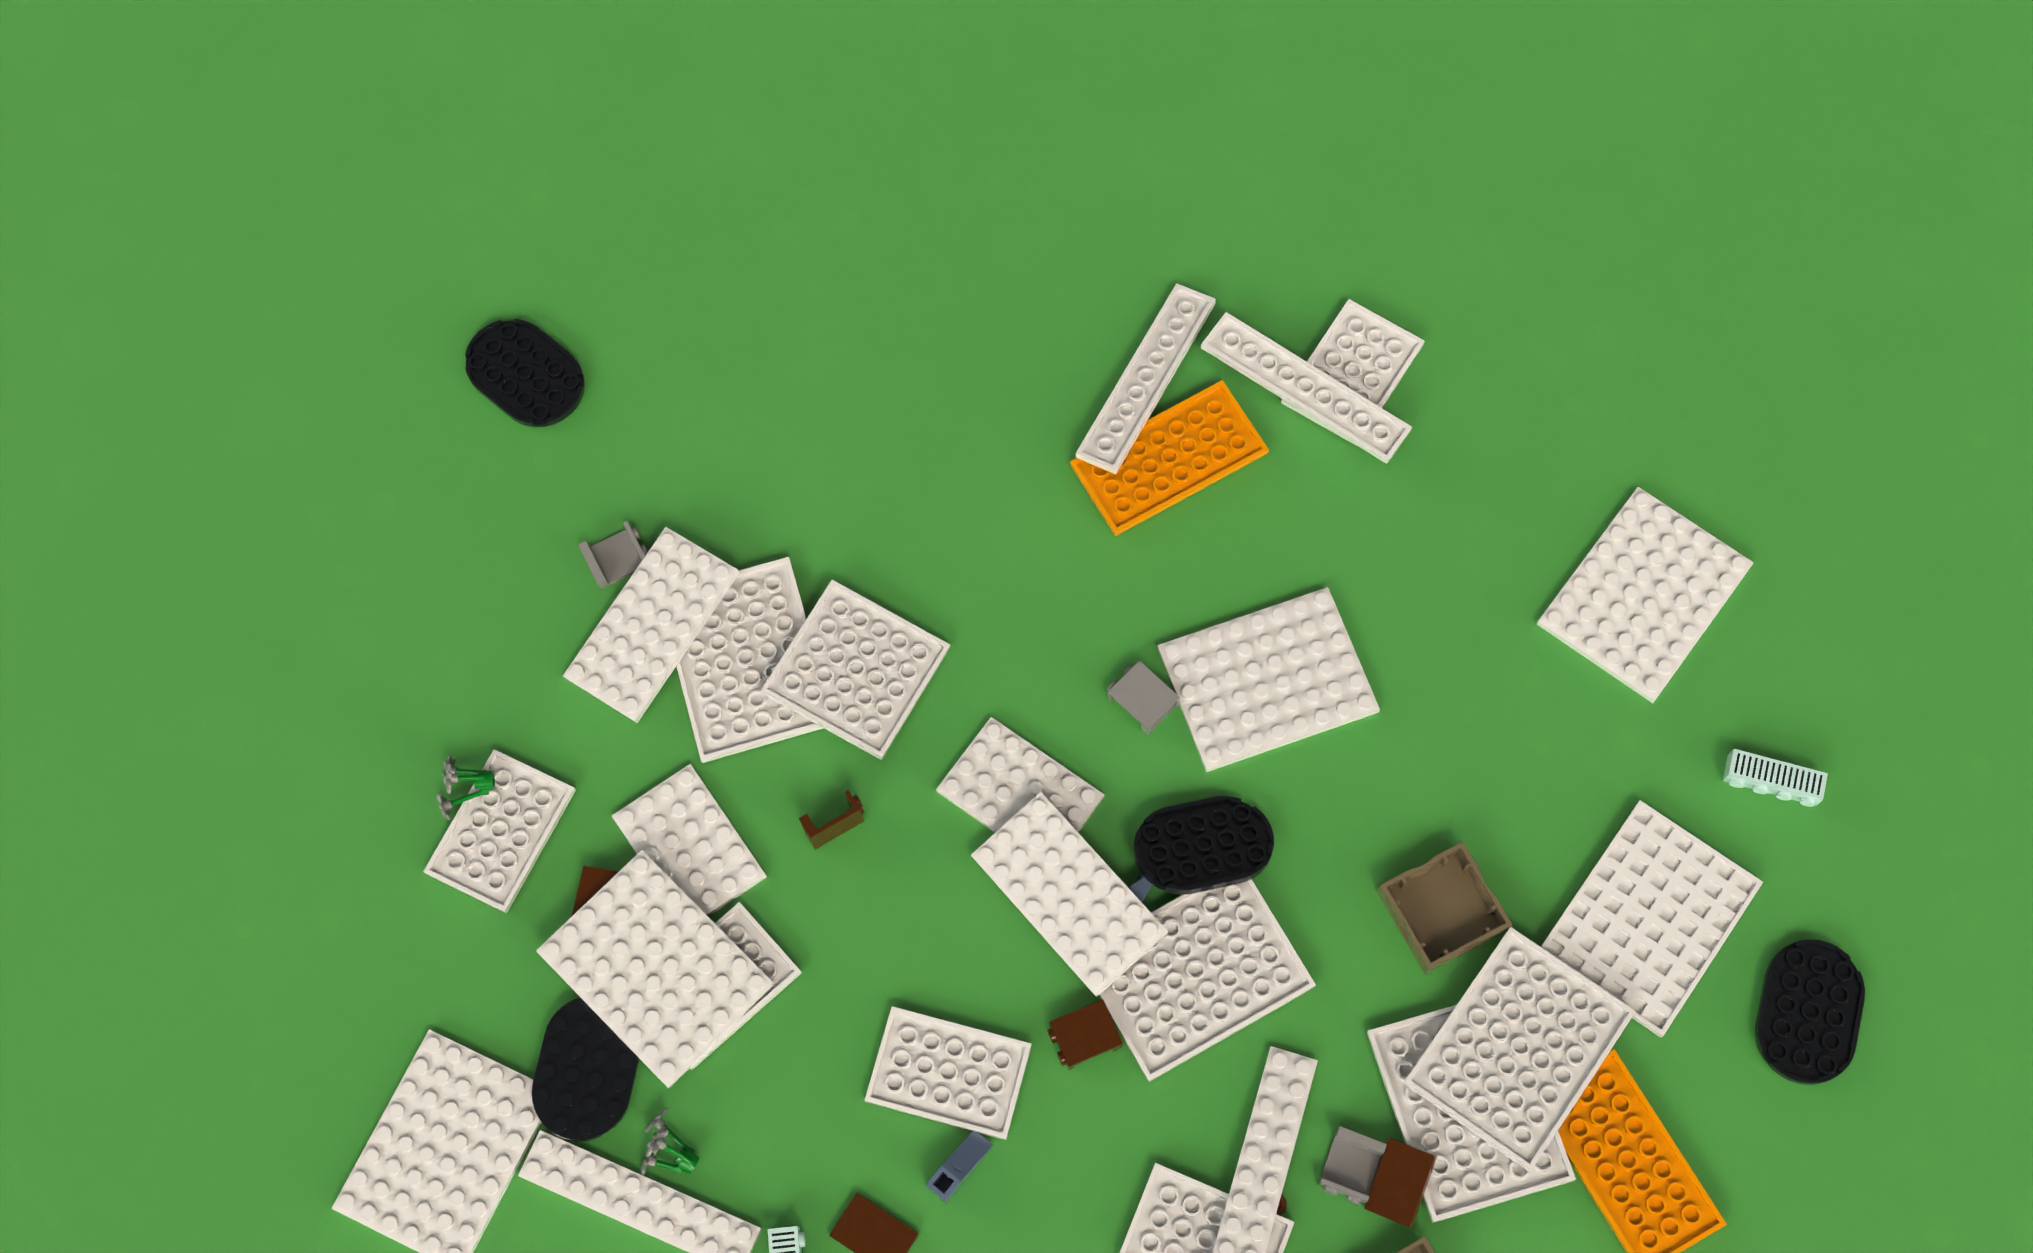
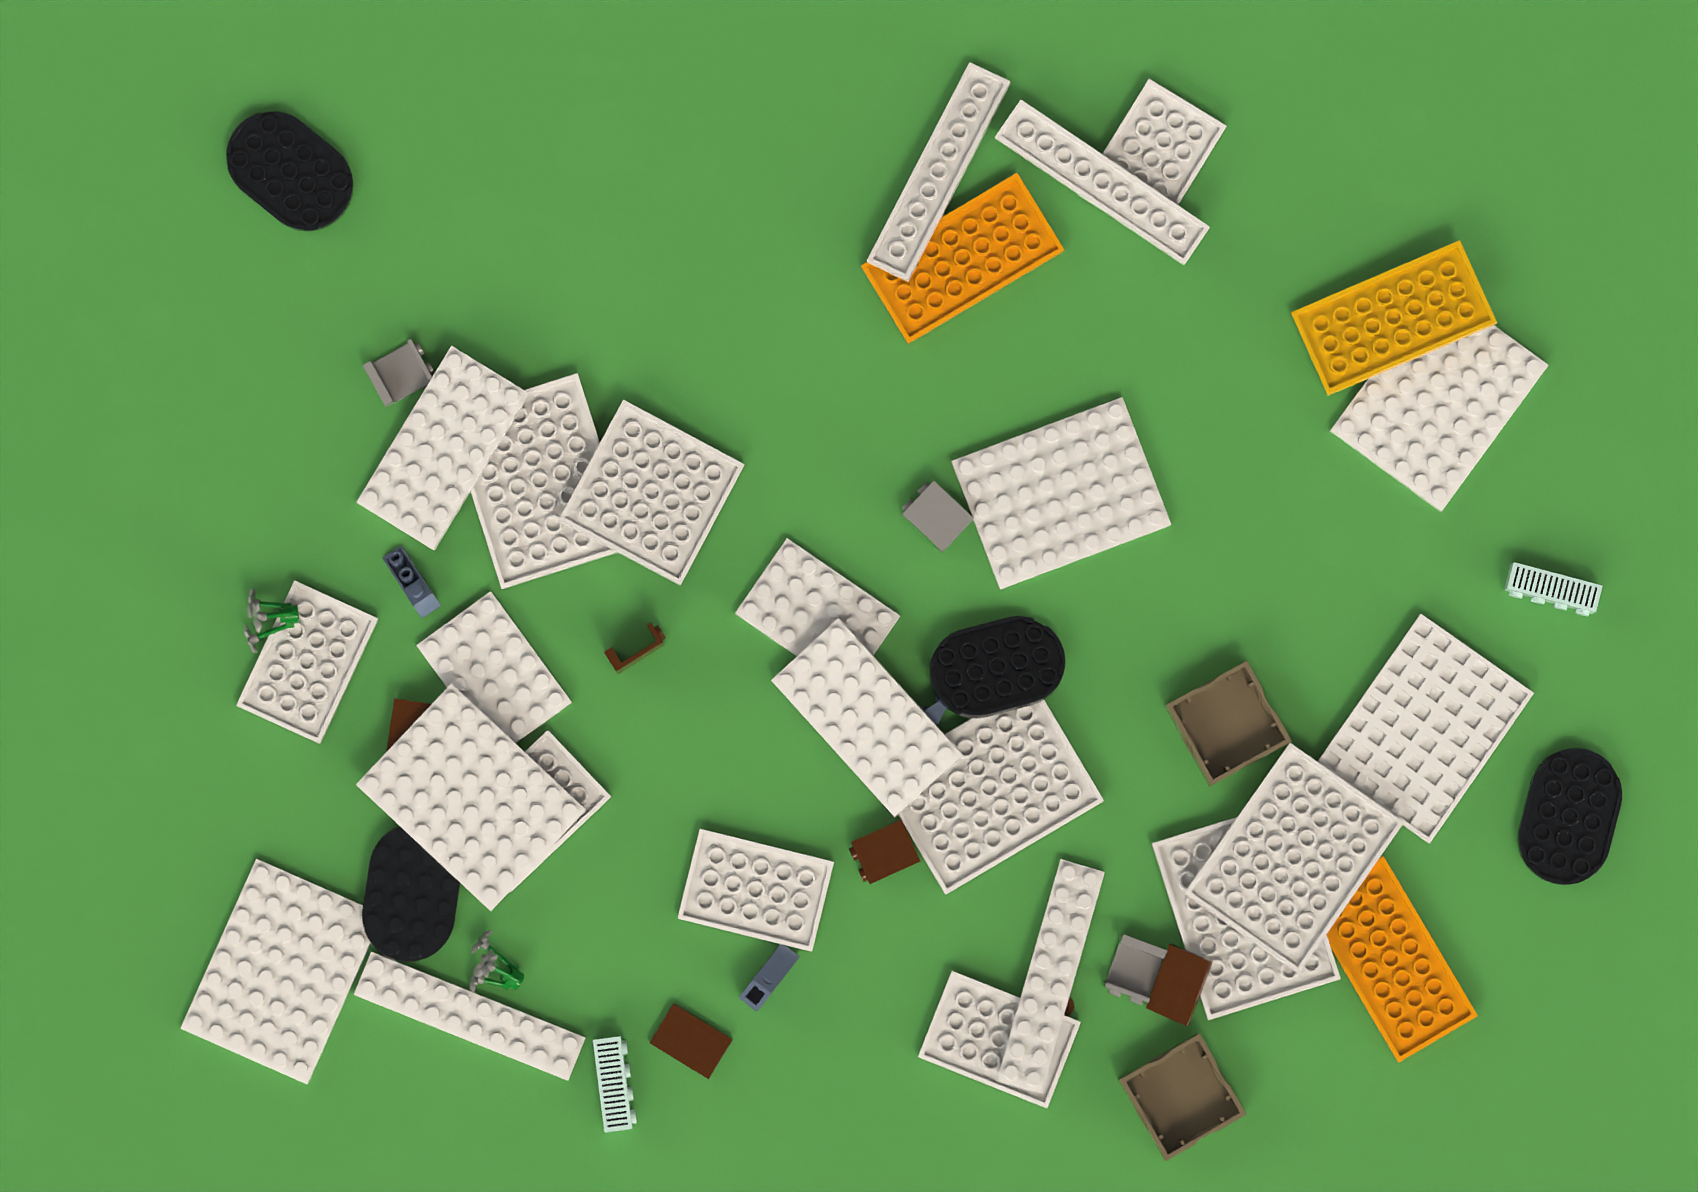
camera: 10 degrees left, 15 degrees up
(611, 754) = (411, 581): none -> sand blue slope
(1597, 514) = (1393, 318): none -> yellow plate

